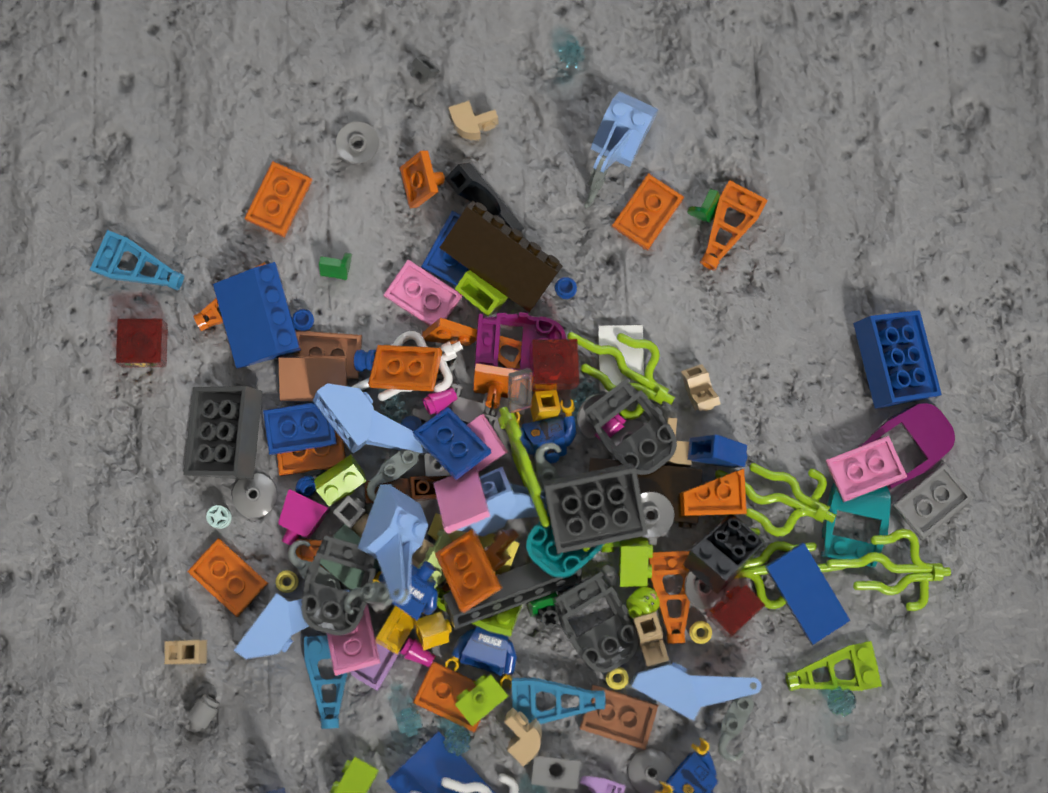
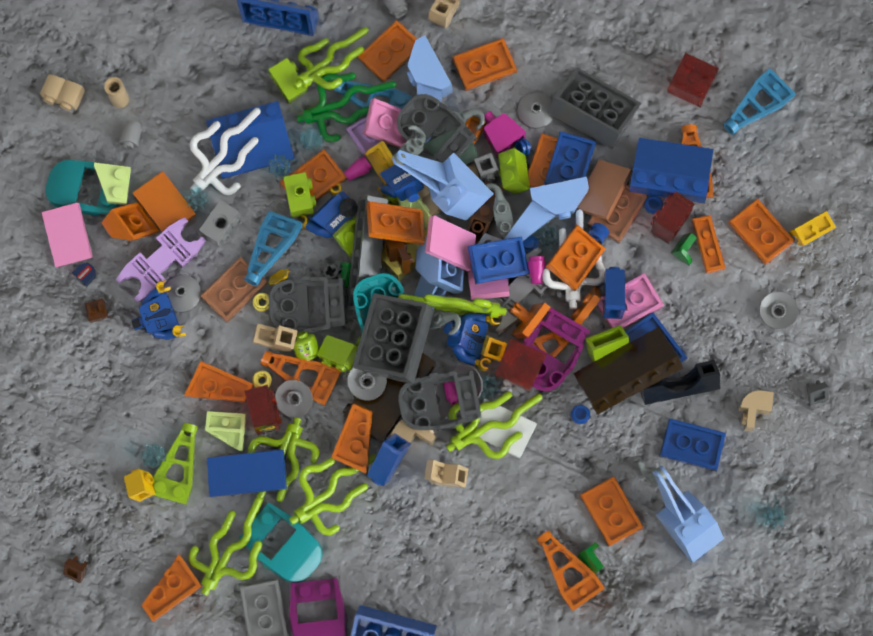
camera: 120 degrees right, 5 degrees down
(214, 515) = (532, 72): light aqua wheel -> none
(251, 147) = (813, 228): none -> yellow hinge
(262, 690) = (388, 51): none -> orange tile
(280, 581) = (459, 98): light yellow plate -> none
(311, 291) = (672, 217): none -> clear red brick
(318, 245) = (708, 244): none -> orange tile
(330, 755) = (314, 72): none -> lime plant
(370, 728) = (322, 110): none -> green plant
(419, 179) = (723, 343): orange tile -> none
(424, 310) = (614, 293): none -> blue slope
(432, 630) = (367, 184): yellow brick -> none
(472, 634) = (348, 207): none -> black plate
(519, 390) = (513, 329): clear tile -> none
(527, 739) = (257, 214): tan brick -> none
(539, 165) = (692, 444): none -> blue tile
(581, 673) = (280, 276): none -> yellow plant
(688, 693) = (224, 339): light blue slope -> none
(723, 553) = (310, 423): black slope -> none
(728, 663) = (217, 385): none -> orange wing
(770, 641) = (227, 428): none -> yellowish green wing
(866, 469) = (316, 568): bright pink tile -> none
(879, 699) = (139, 485): none -> yellow brick
(961, 606) = (171, 590): none -> orange wing
(1000, 719) = (74, 569): none -> reddish brown tile

